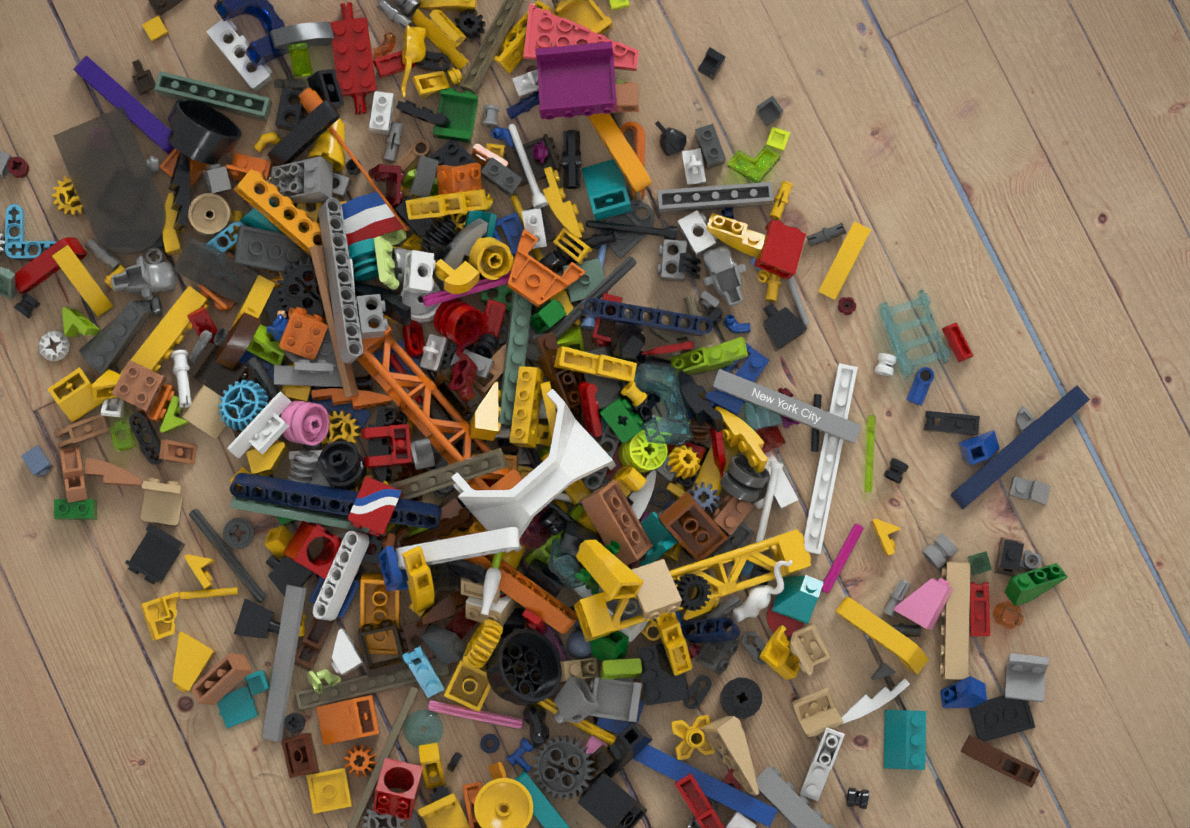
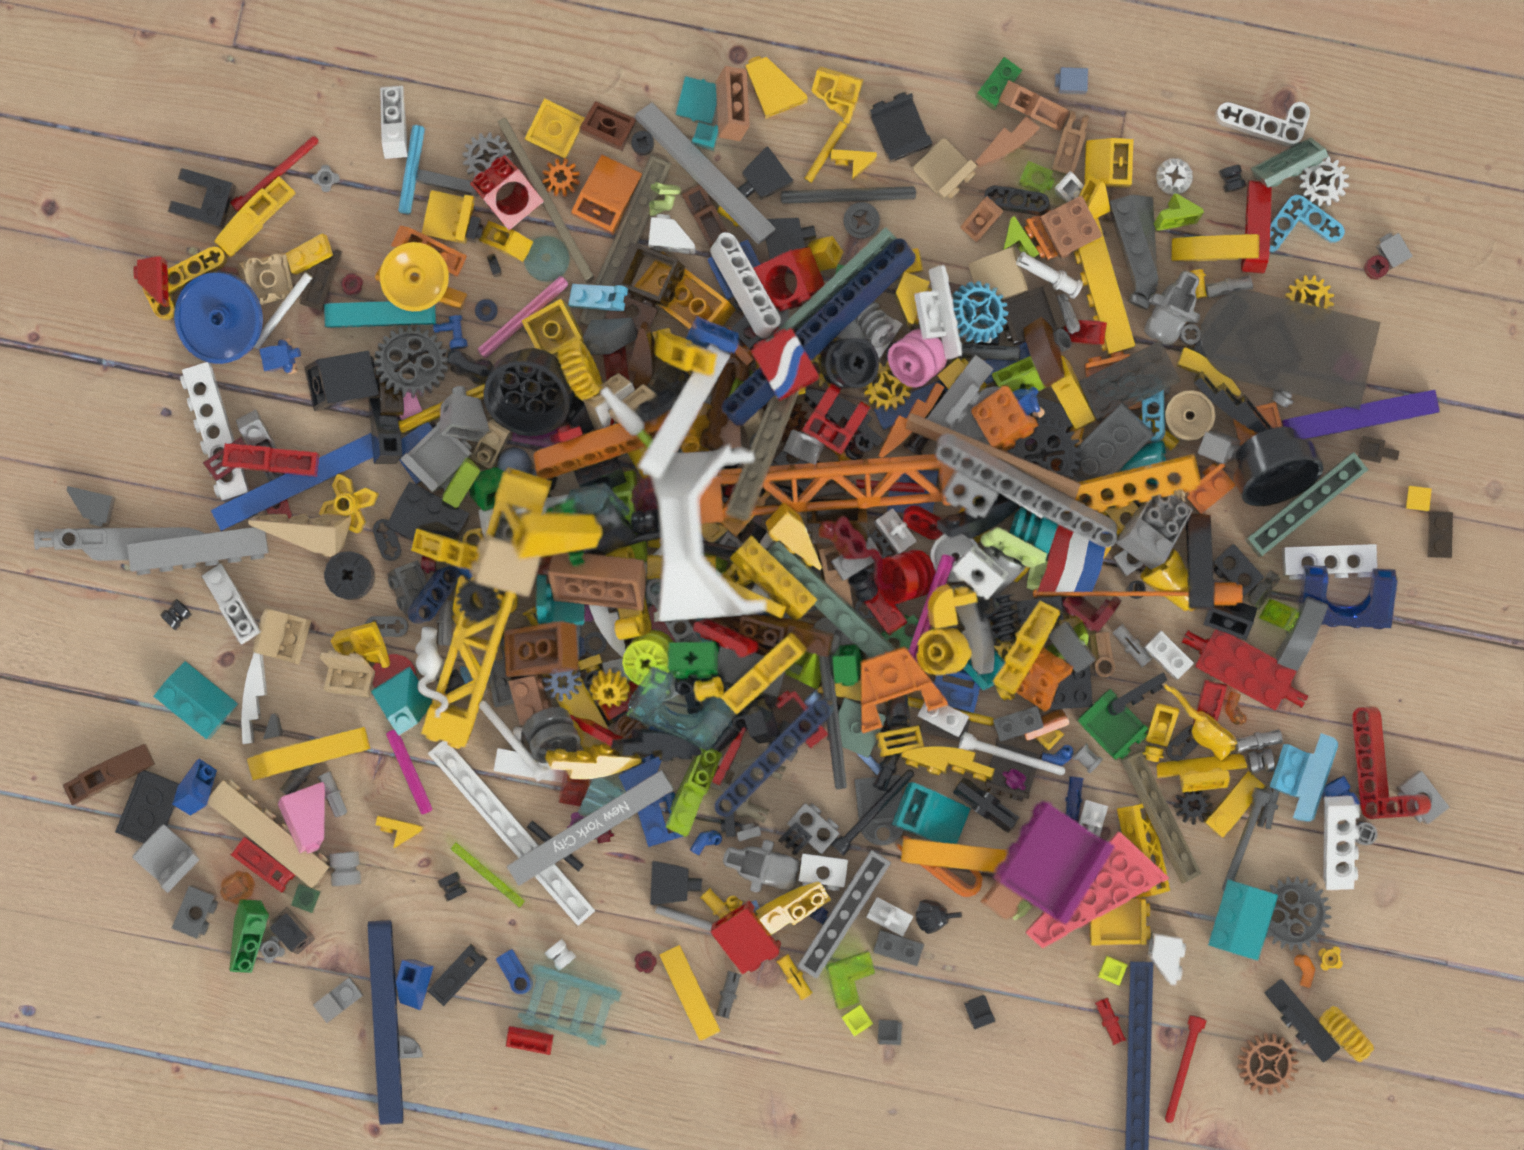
camera: 130 degrees right, 5 degrees up
(265, 139) = (1227, 525): yellow arm -> none
(412, 243) = (1017, 588): yellow tile -> none
(1034, 630) = (185, 921): none -> dark grey brick

